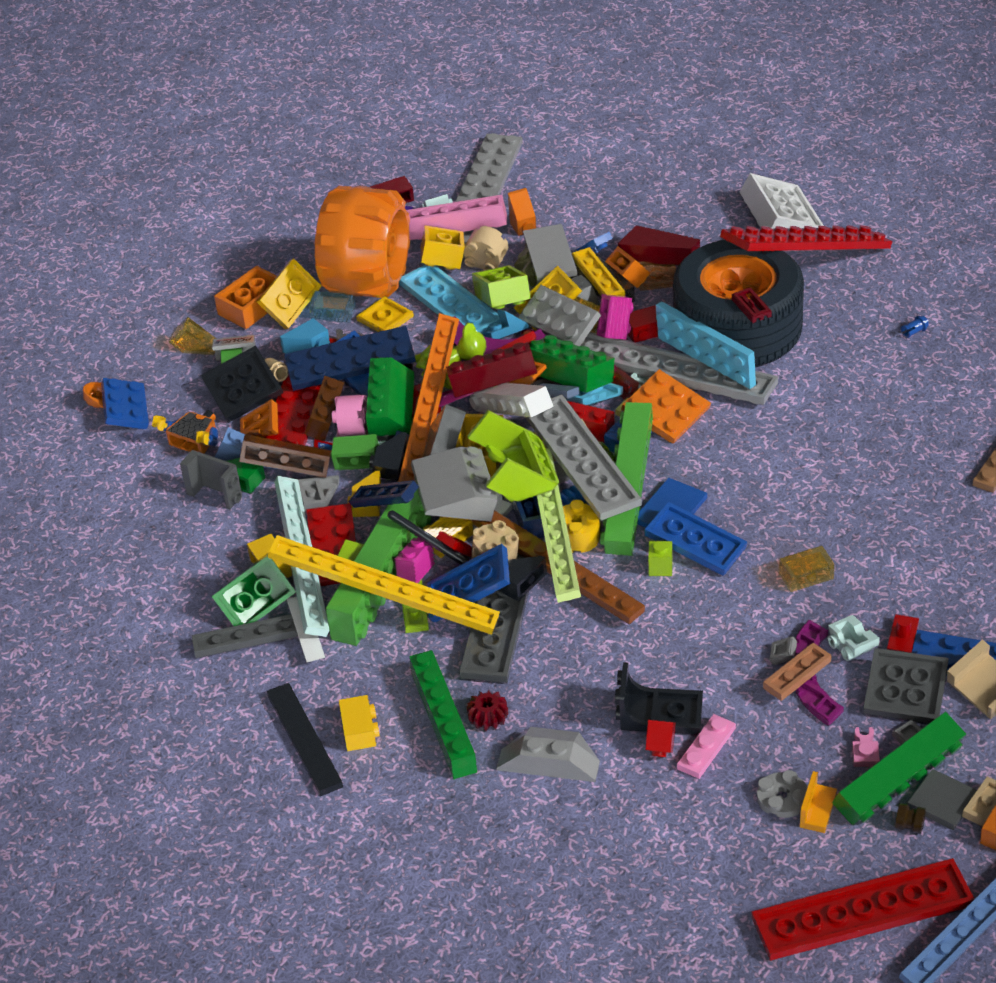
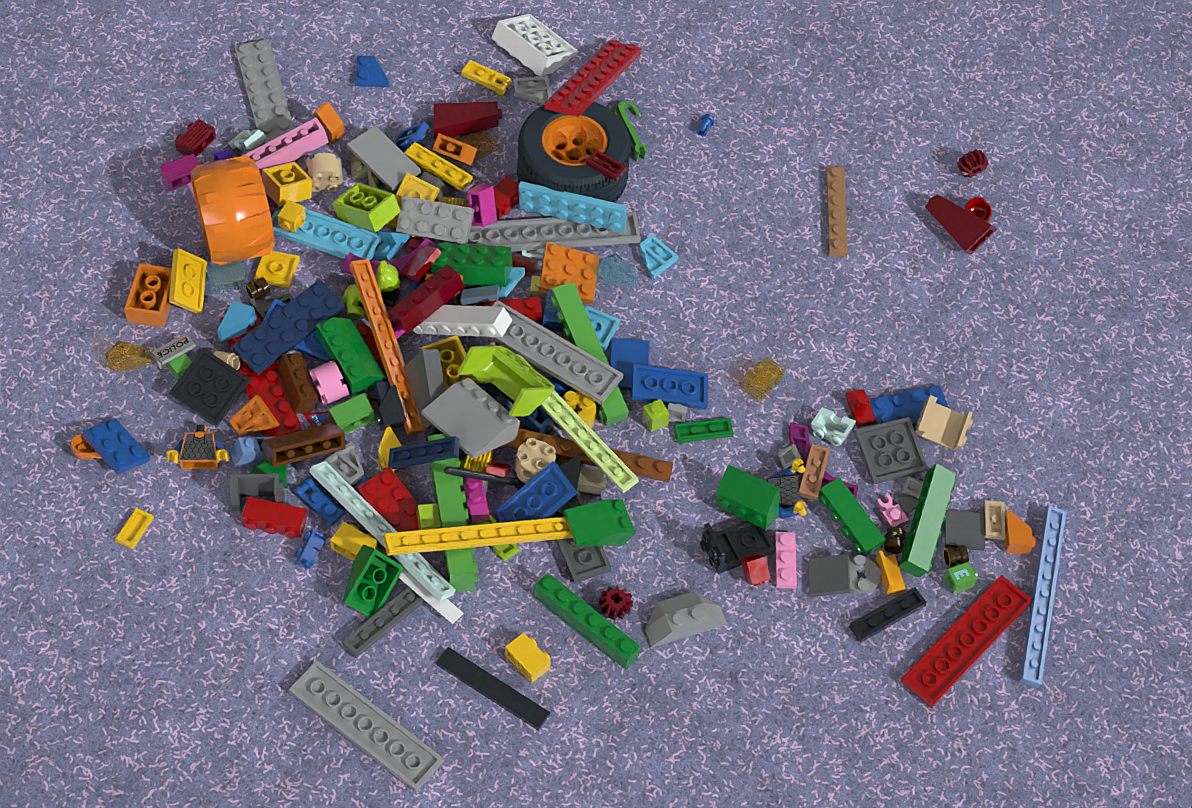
camera: 40 degrees left, 15 degrees up
(88, 475) = (134, 528): none -> yellow tile
(156, 720) = (366, 726): none -> light grey plate
(215, 510) = (274, 517): none -> red brick
(219, 551) = (312, 540): none -> blue hinge
(268, 513) = (319, 502): none -> blue plate
(352, 323) = (258, 288): none -> dark brown wheel
(425, 273) = (291, 216): none -> yellow brick
(520, 628) = (600, 523): none -> green slope
(542, 593) = (591, 481): none -> dark tan brick
(597, 189) = (369, 73): none -> blue wing
(663, 463) = (603, 325): none -> medium azure plate
(686, 564) = (677, 412): none -> light grey plate
(698, 663) = (748, 497): none -> green slope
(706, 593) = (703, 430): none -> green tile
(708, 221) = (486, 77): none -> yellow plate
(718, 421) = (617, 271): none -> clear light blue slope
(742, 777) = (829, 575): none -> dark grey tile
(745, 677) = (789, 491): none -> torso
(773, 422) = (656, 256): none -> medium azure wing
(785, 844) = (887, 614): none -> black plate
(808, 729) = (851, 517): none -> green brick
(824, 321) = (636, 146): none -> bright green piece
(846, 773) = (894, 540): none -> dark brown wheel
(887, 744) = (906, 503): none -> dark grey tile
(901, 842) = (961, 577): none -> bright green brick

